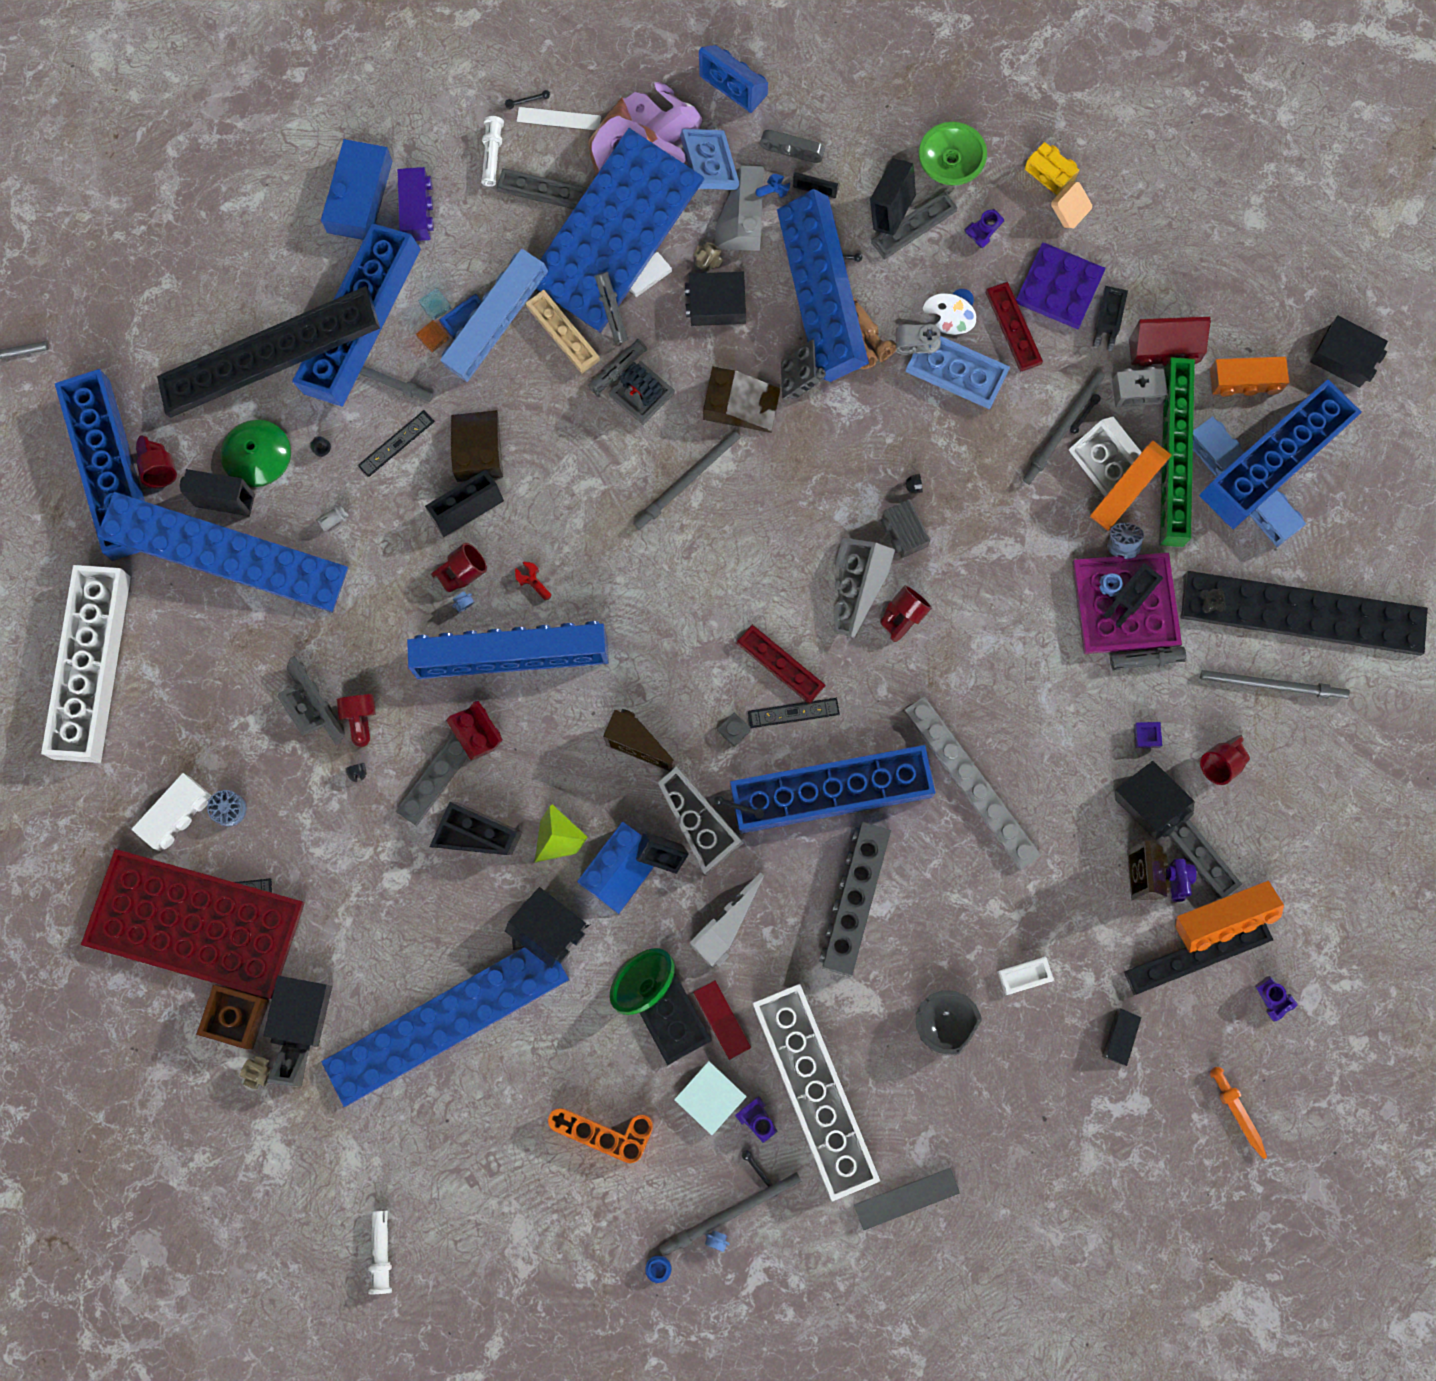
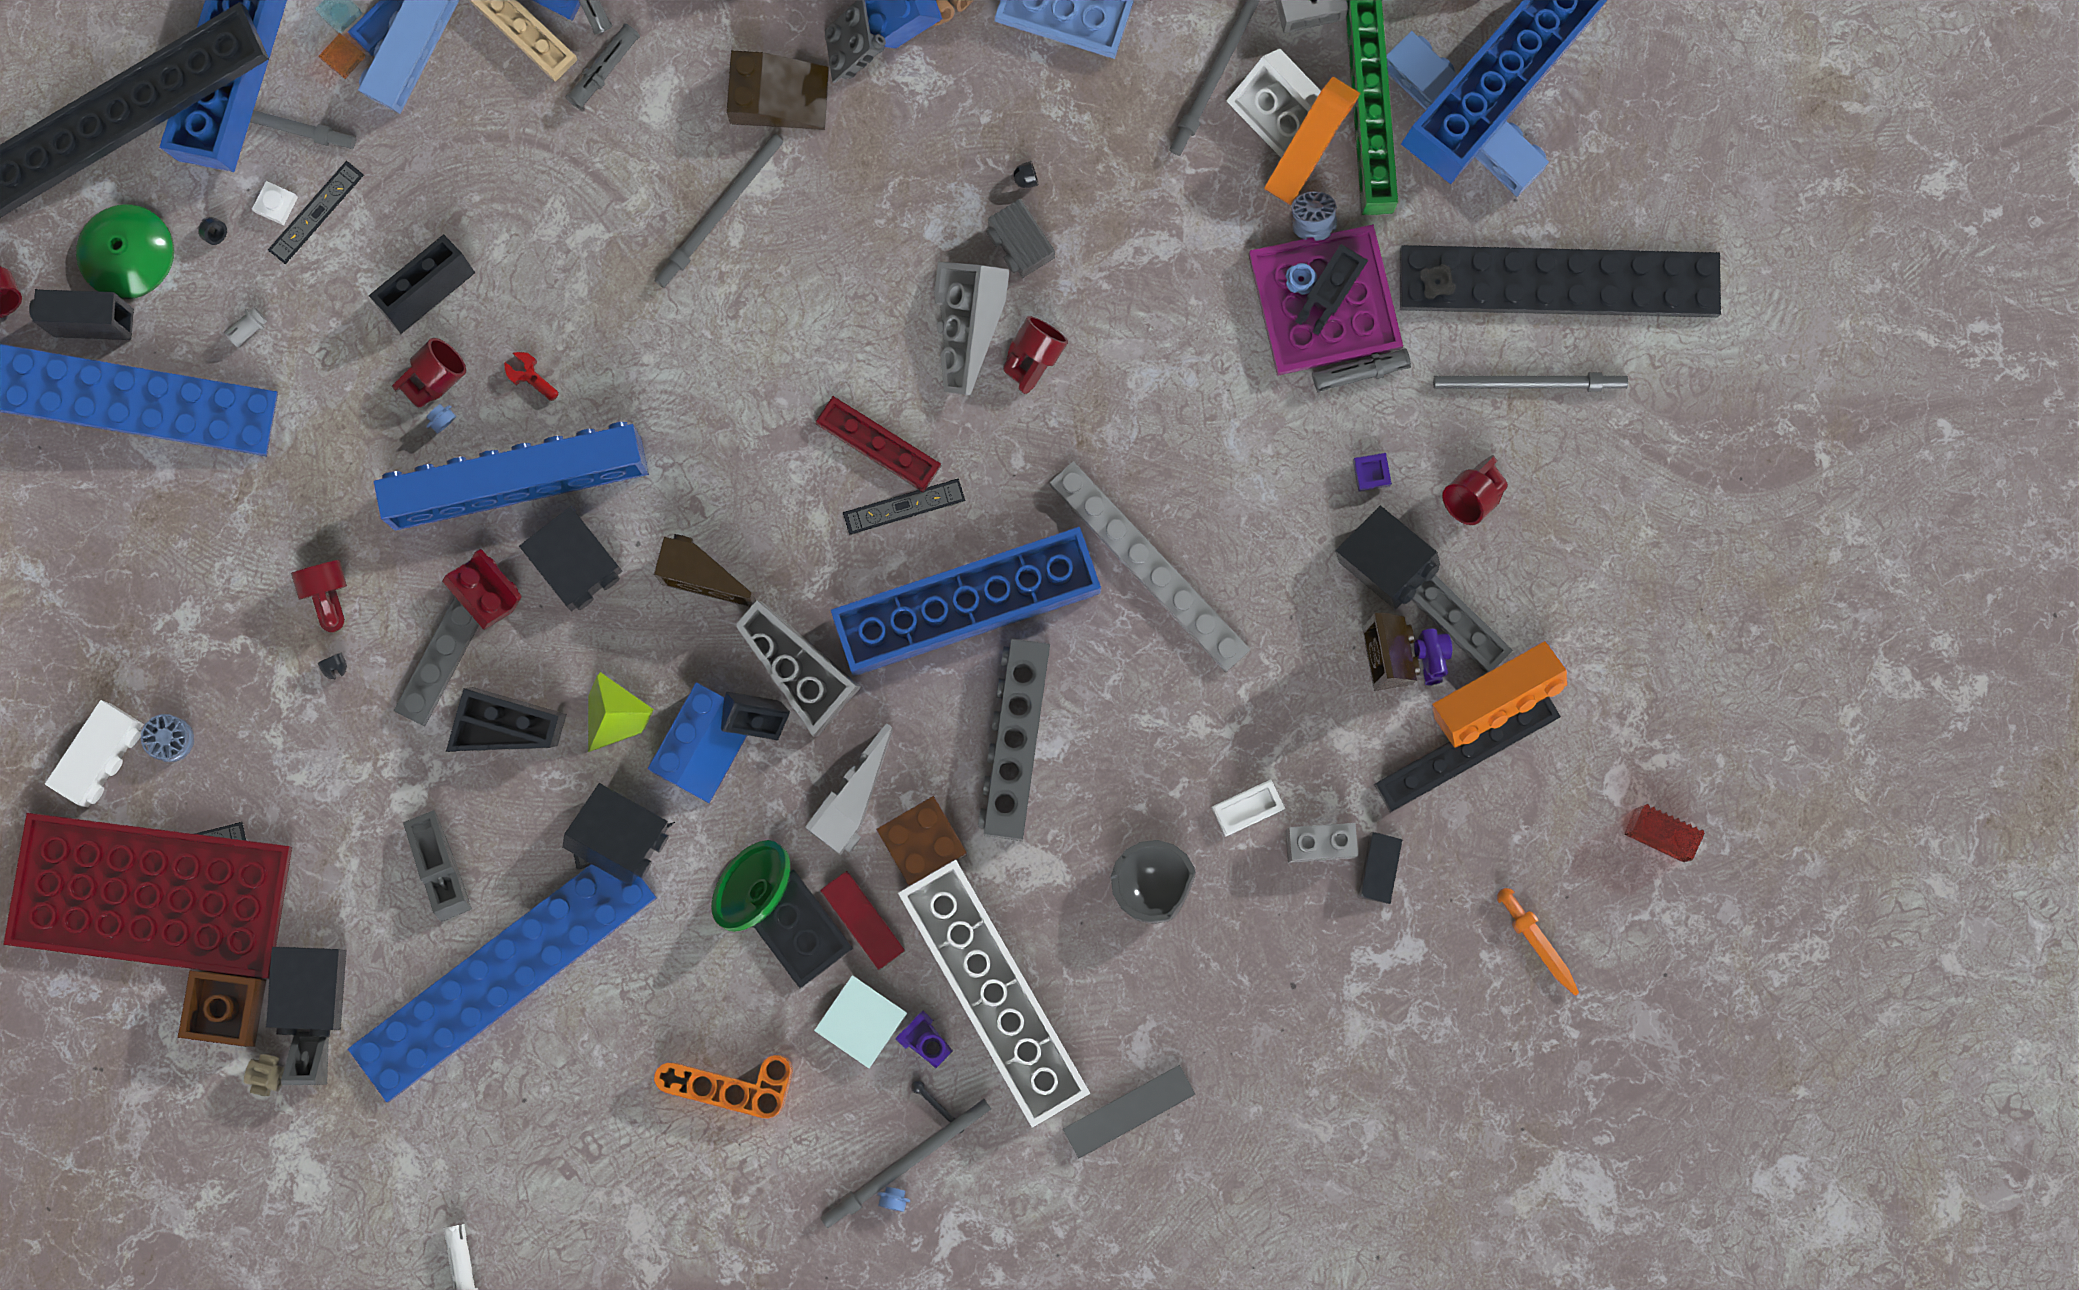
camera: 15 degrees left, 5 degrees up
(307, 706) = (252, 587): dark grey bracket -> none
(368, 432) = (274, 203): none -> white plate
(409, 932) = (437, 866): none -> dark grey slope
(476, 445) = (425, 200): dark brown slope -> none
(543, 718) = (571, 559): none -> black brick
(641, 392) = (640, 97): plate -> none
(658, 1269) = (823, 1245): blue plate -> none
(734, 729) = (828, 540): dark grey plate -> none
(759, 813) = (873, 646): black hinge -> none
(775, 966) = (921, 841): none -> reddish brown brick
(1080, 1011) = (1321, 842): none -> light grey brick
(1095, 399) = (1254, 27): black hinge -> none
(1277, 1001) = (1574, 795): dark purple plate -> none
(1346, 1042) = (1664, 833): none -> clear red brick

